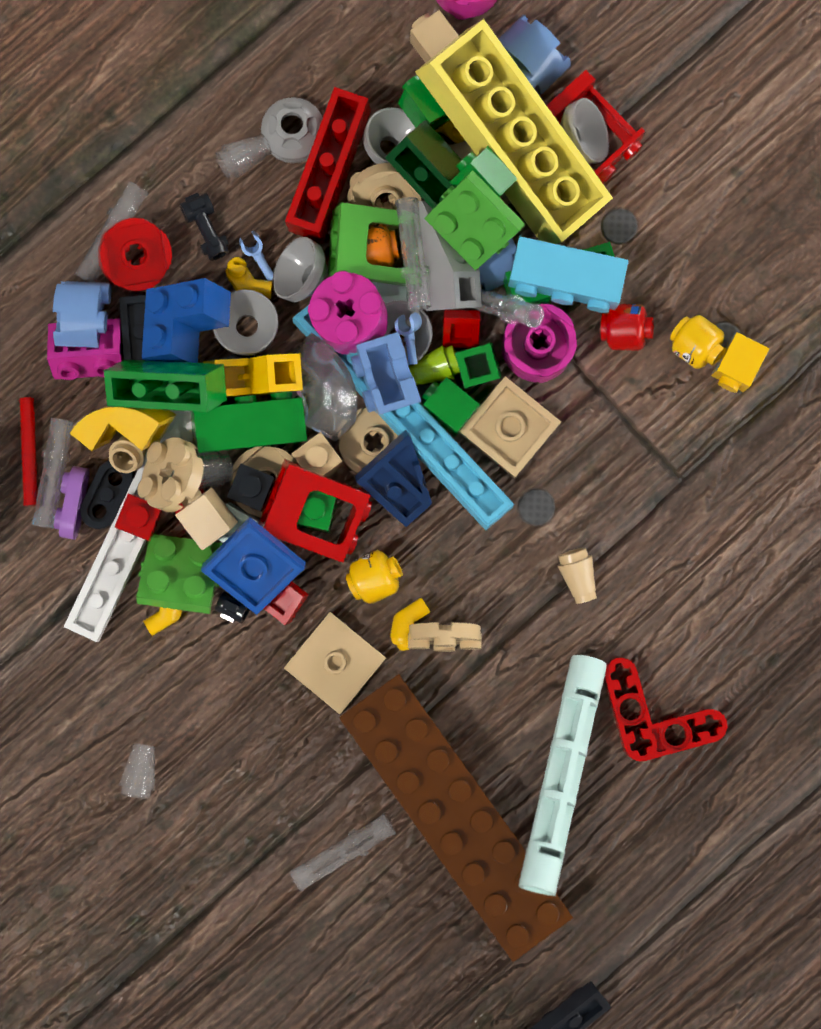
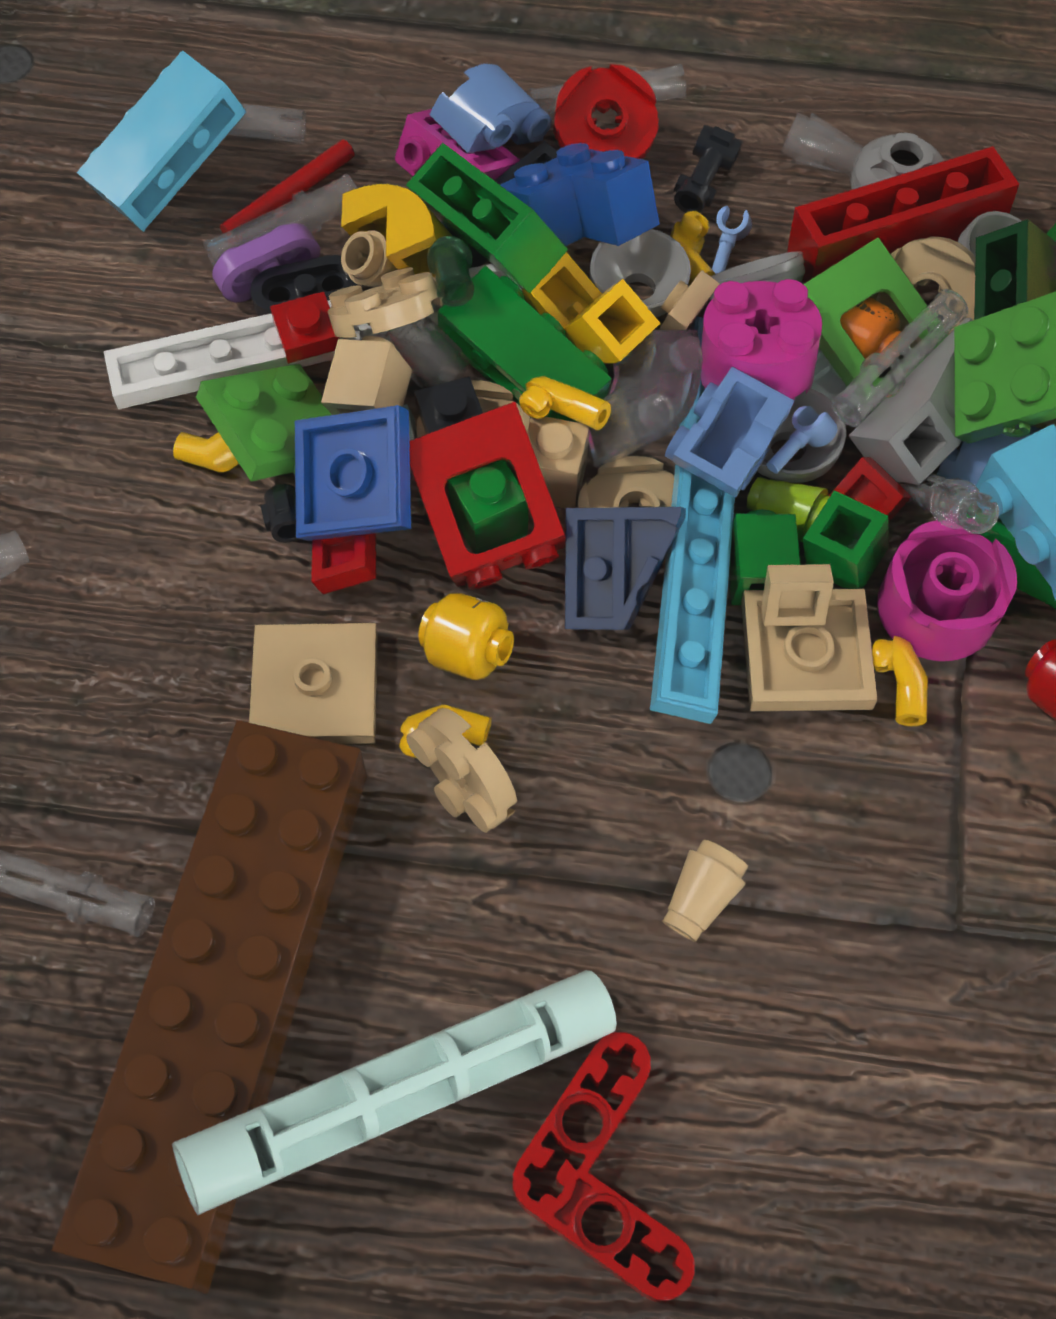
camera: 55 degrees right, 20 degrees down
(176, 424) = (450, 263): none -> clear green pin
(292, 323) = (687, 301): none -> tan plate
(301, 432) = (548, 394): none -> yellow arm
(487, 415) = (797, 595): none -> tan plate
(558, 392) = (910, 677): none -> yellow arm

